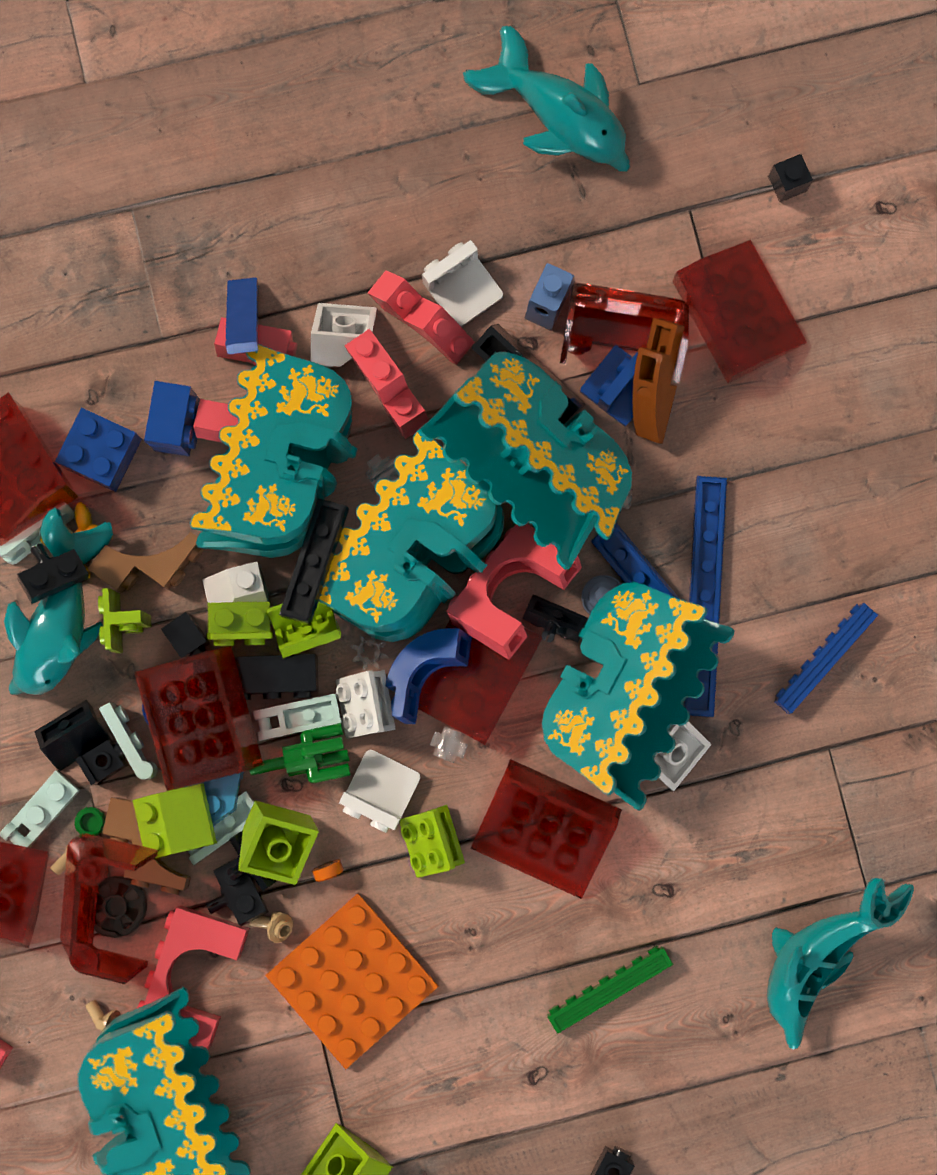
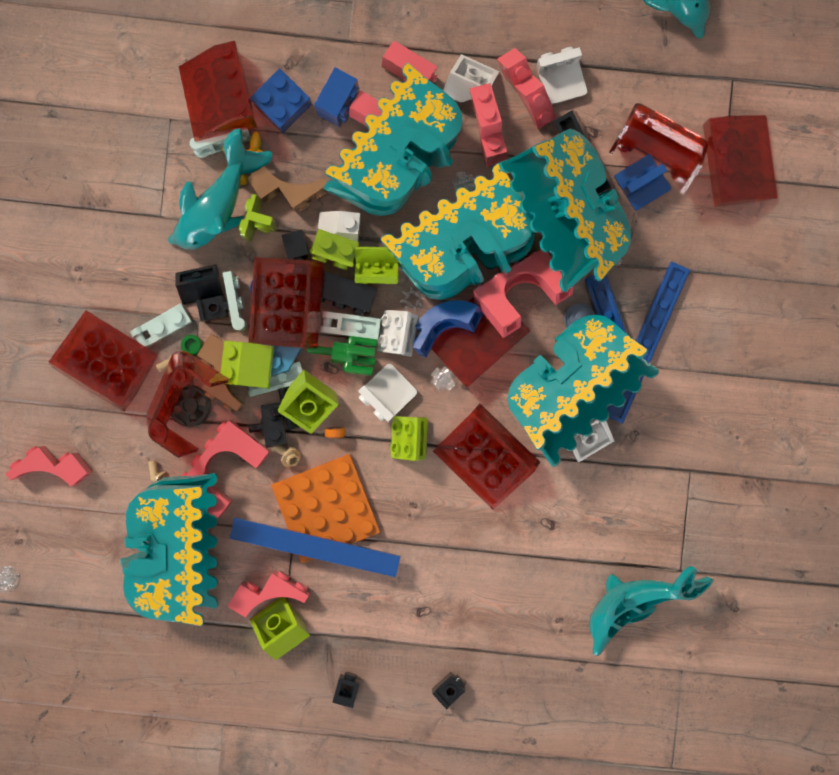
camera: 20 degrees right, 5 degrees up
(51, 574) = (222, 172): black plate -> none
(242, 316) = (408, 44): blue tile -> none
(314, 561) = (398, 226): black tile -> none
(323, 1113) = (277, 586): none -> coral arch
(355, 1040) = (315, 547): none -> blue tile
(549, 295) = (619, 104): medium blue torso -> none
(554, 619) = (542, 322): black plate -> none
(609, 989) = (490, 573): green piece -> none
(652, 384) = (665, 188): dark orange slope -> none
(790, 178) = (809, 82): black brick -> none
(825, 657) = (710, 411): blue piece -> none

